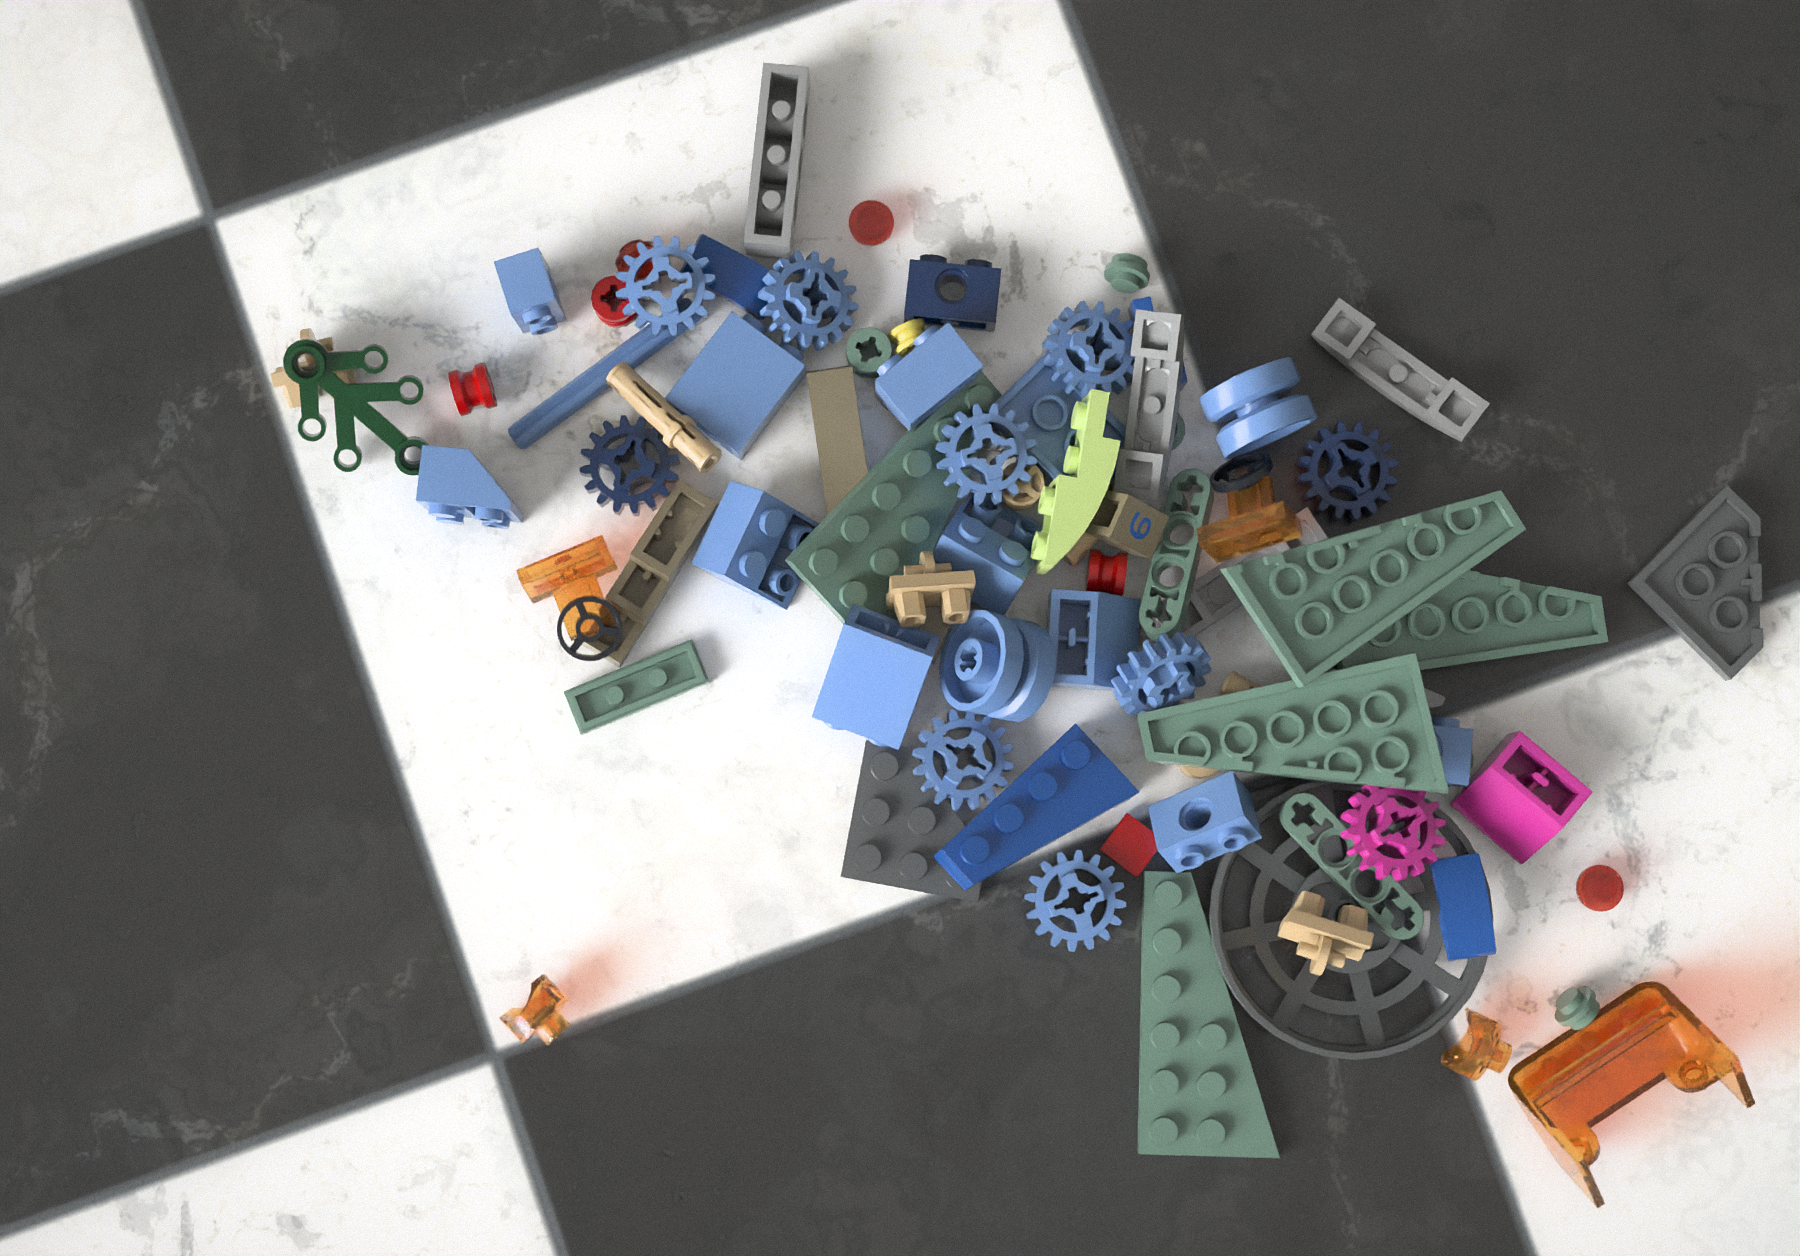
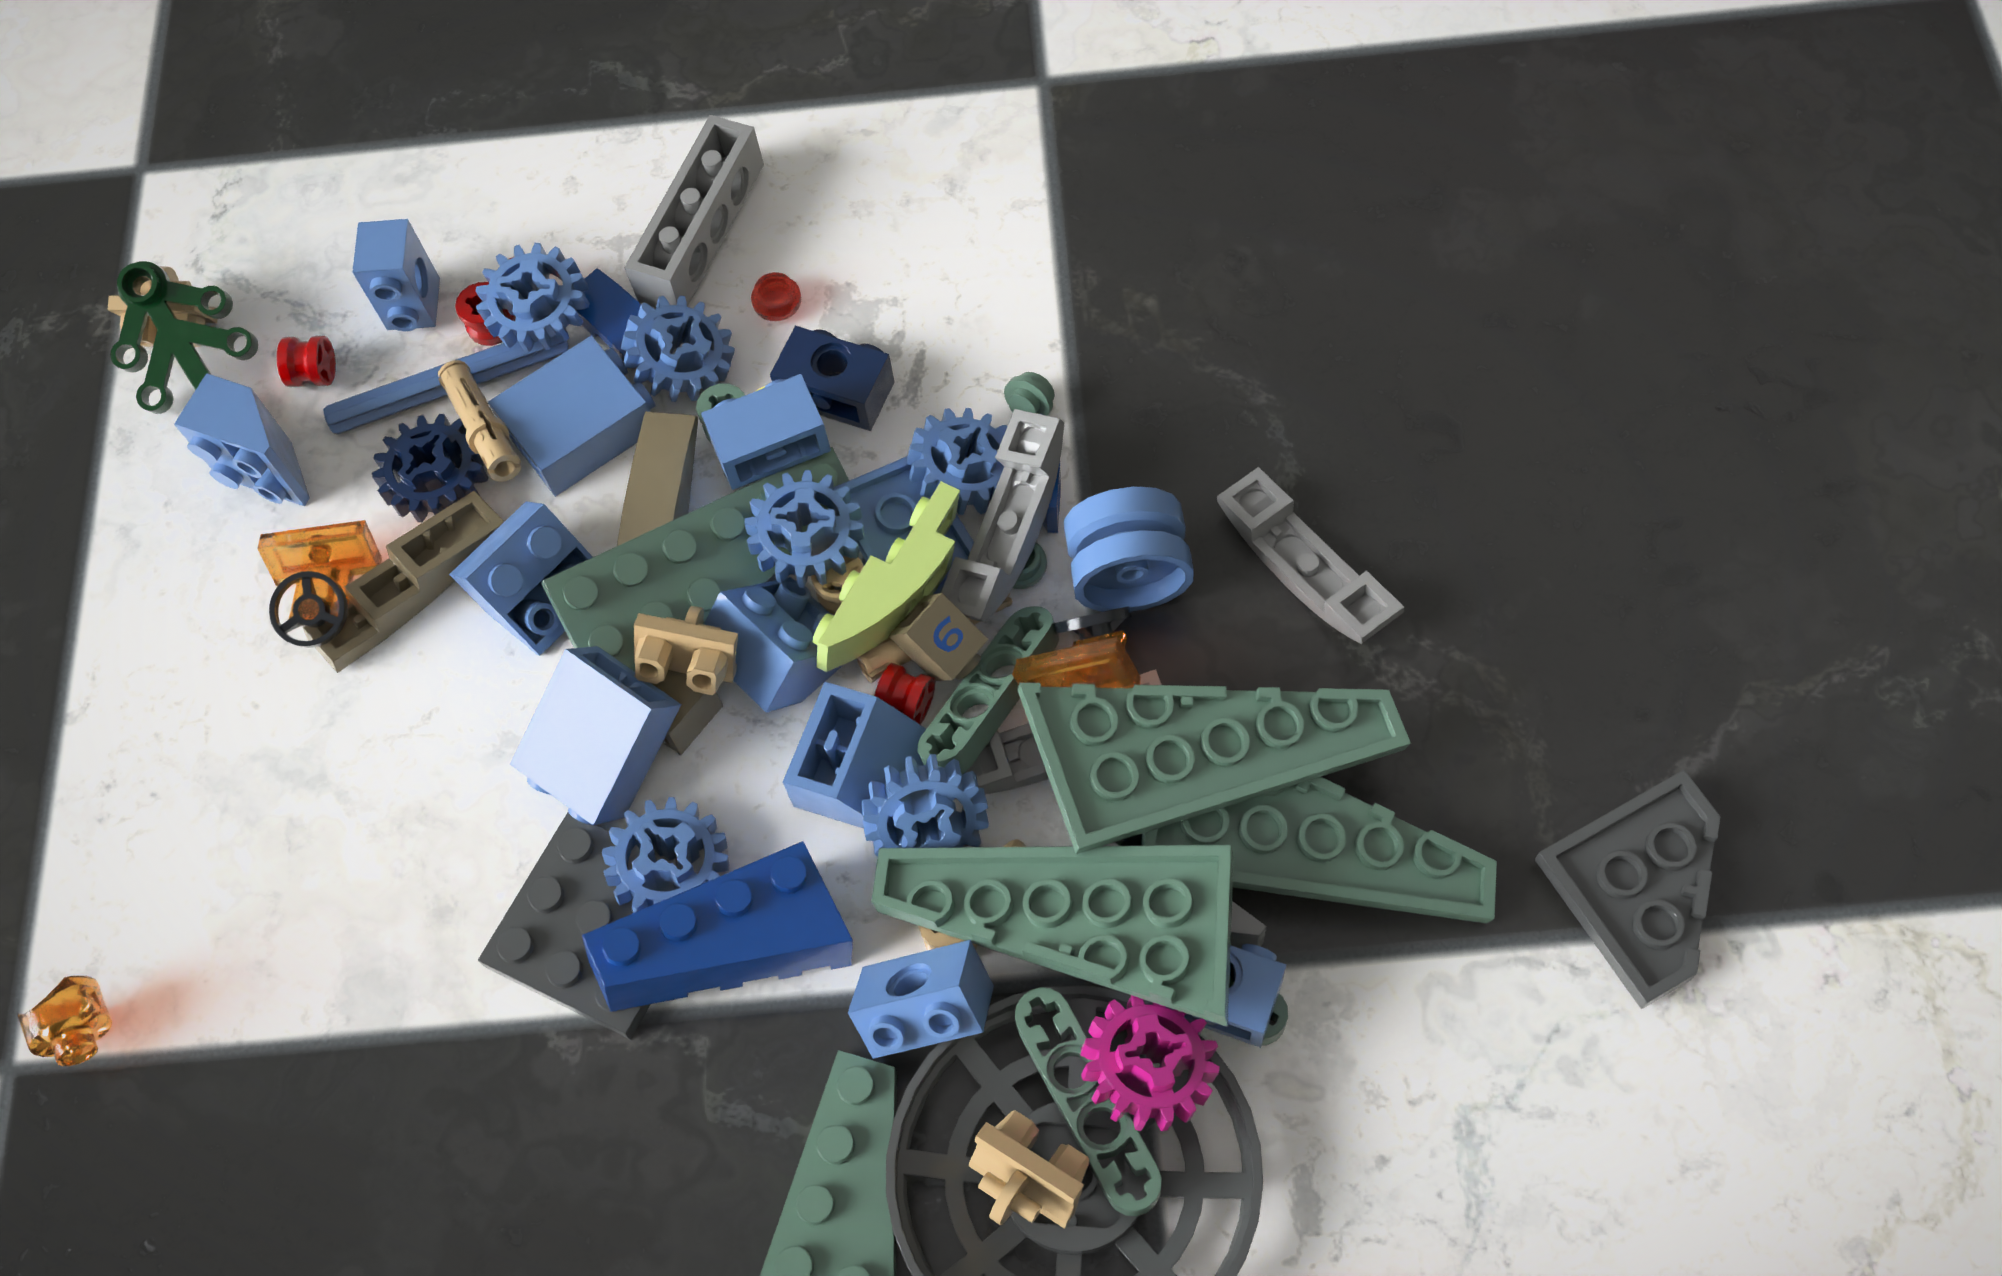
camera: 25 degrees right, 20 degrees down
(636, 687) = (344, 696): sand green tile -> none
(997, 666) = (733, 753): medium blue wheel -> none
(1082, 921) = (740, 1087): medium blue gear -> none
(1130, 845) = (827, 1017): red tile -> none
(1355, 487) = (1232, 632): dark blue gear -> none
(1464, 907) = (1218, 1191): blue slope -> none
(1520, 797) = (1335, 1078): dark pink slope -> none
(1599, 888) = (1417, 1231): clear red plate -> none

